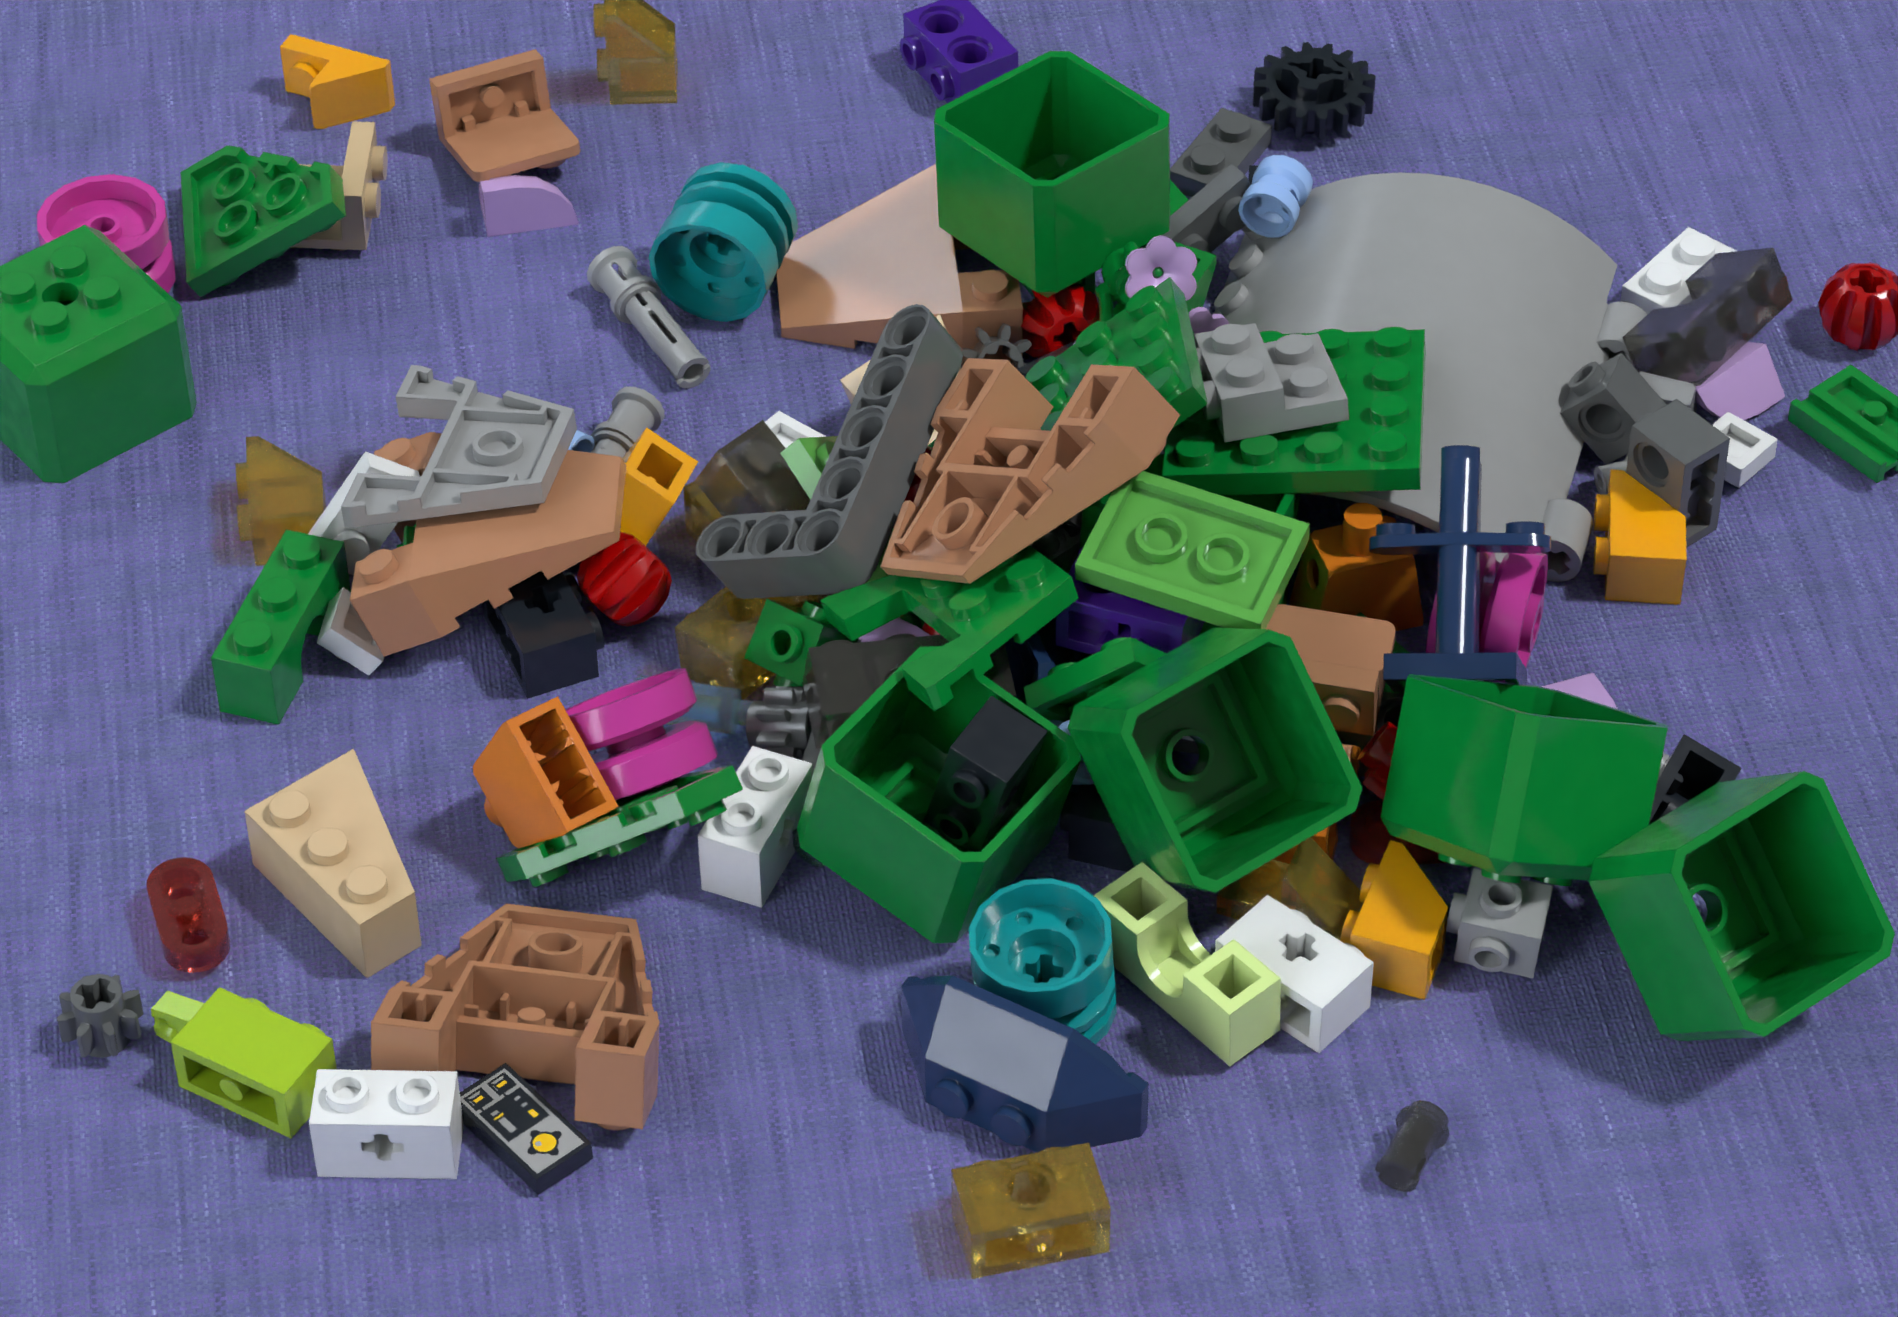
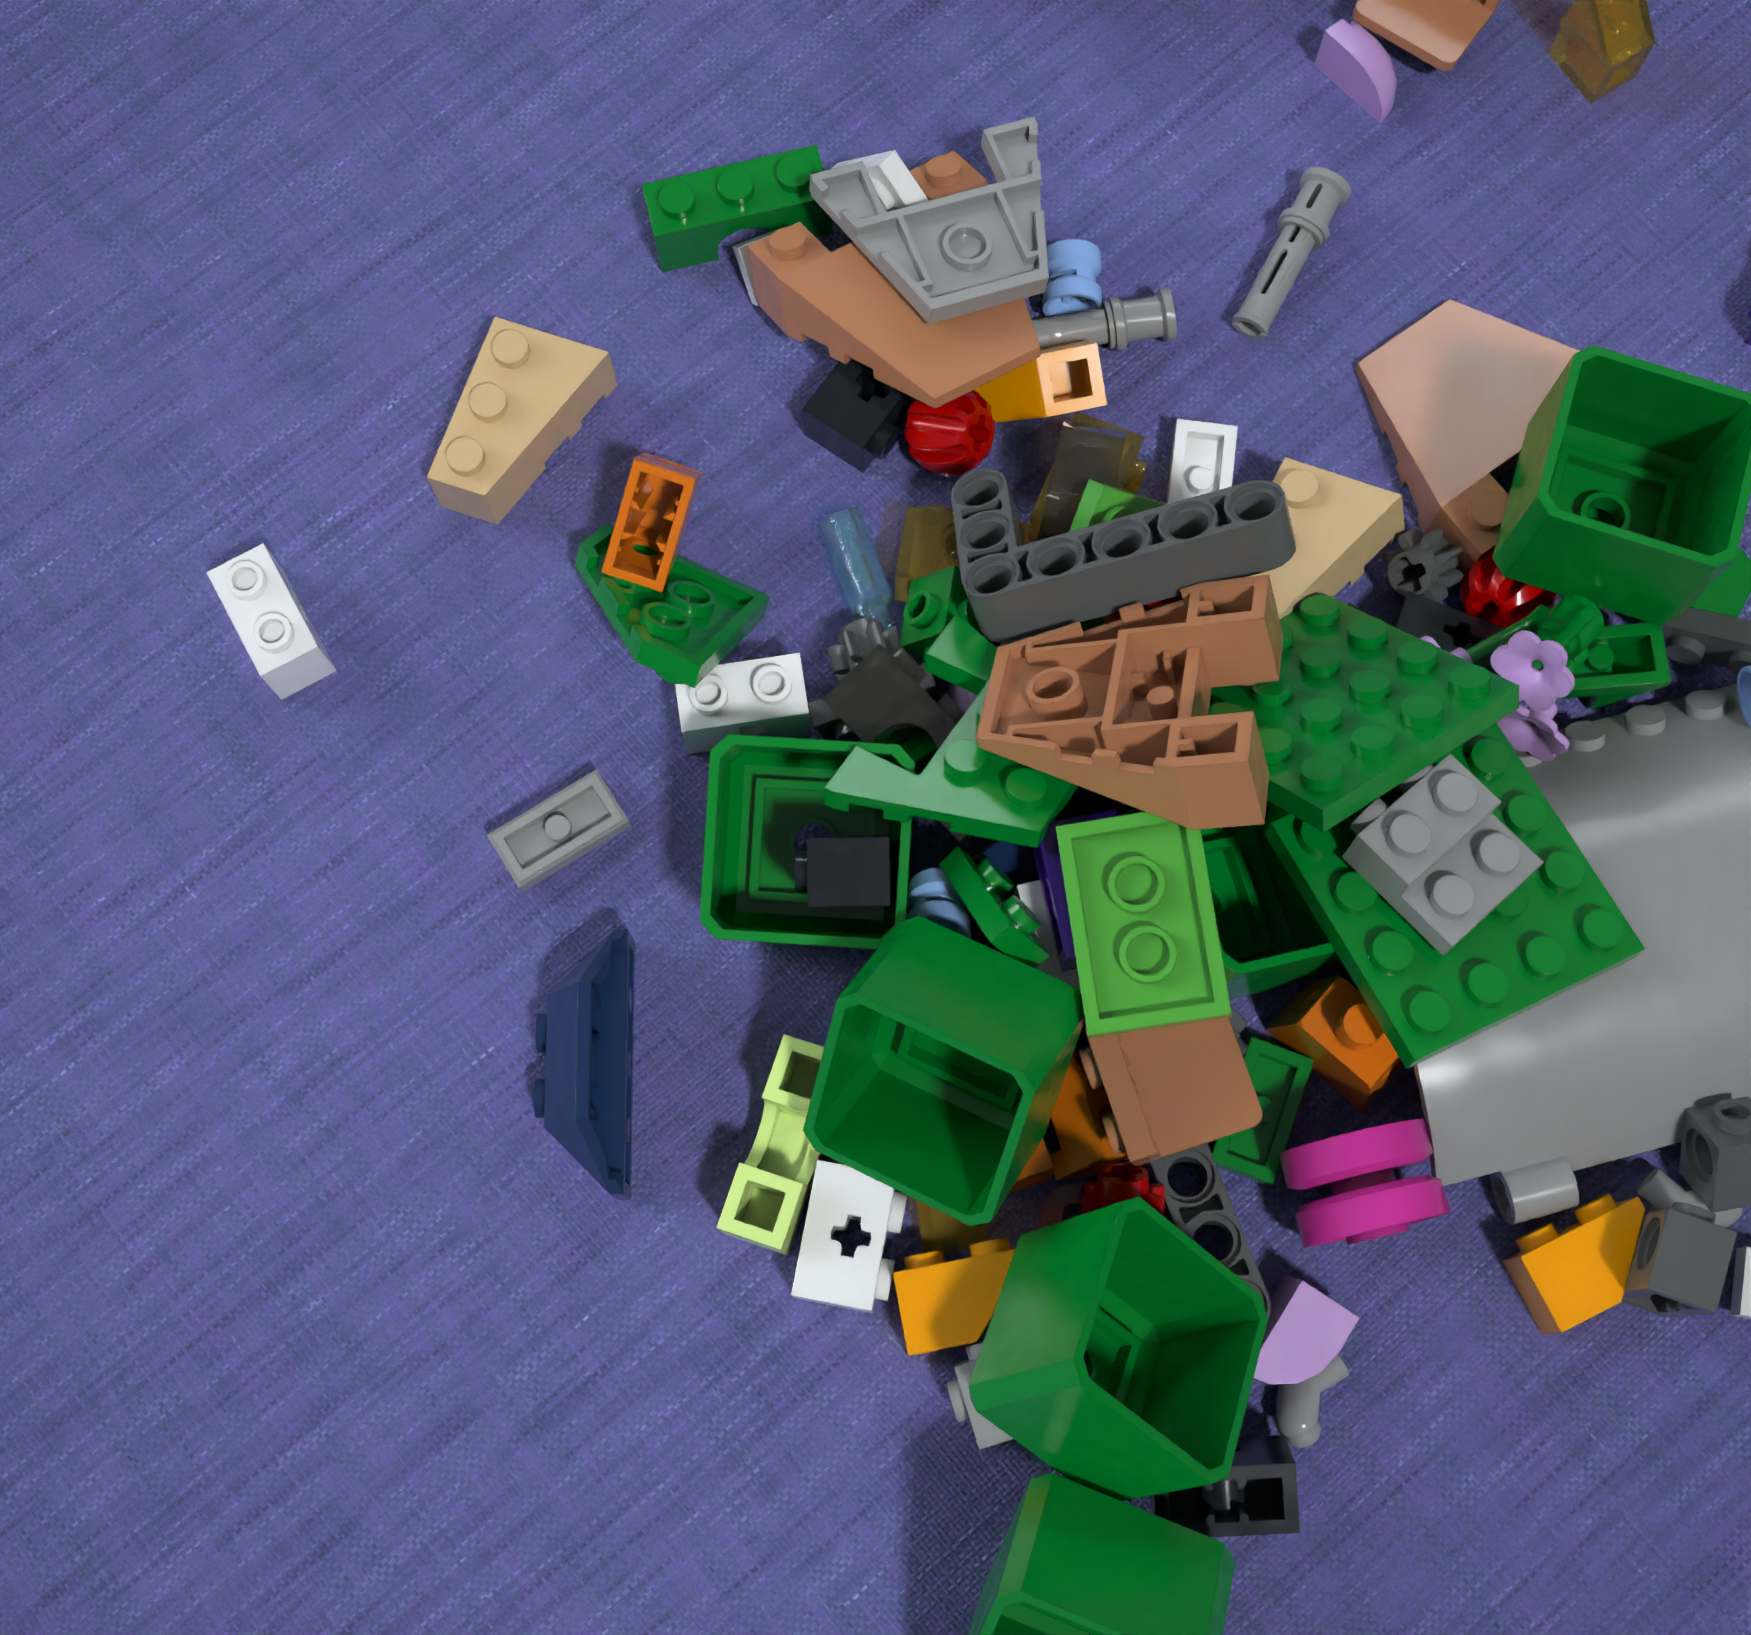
camera: 60 degrees right, 30 degrees up
(100, 1015) = (268, 348): dark grey gear -> none
(188, 915) = (404, 341): clear red plate -> none
(245, 1056) = (288, 478): lime hinge -> none
(279, 494) = (874, 112): clear yellow slope -> none
(523, 1129) = (344, 718): tile -> none
(547, 996) = (474, 646): nougat wedge -> none
(632, 729) = (750, 555): dark pink wheel -> none
(723, 242) = (1399, 256): teal wheel -> none
(766, 1013) = (559, 830): none -> light grey plate
(1030, 1210) = (426, 1150): clear yellow brick -> none
(1048, 952) = (664, 1025): teal wheel -> none
(1419, 1132) = (717, 1442): clear smoke pin -> none
(1458, 576) = (1245, 1207): dark blue piece -> none

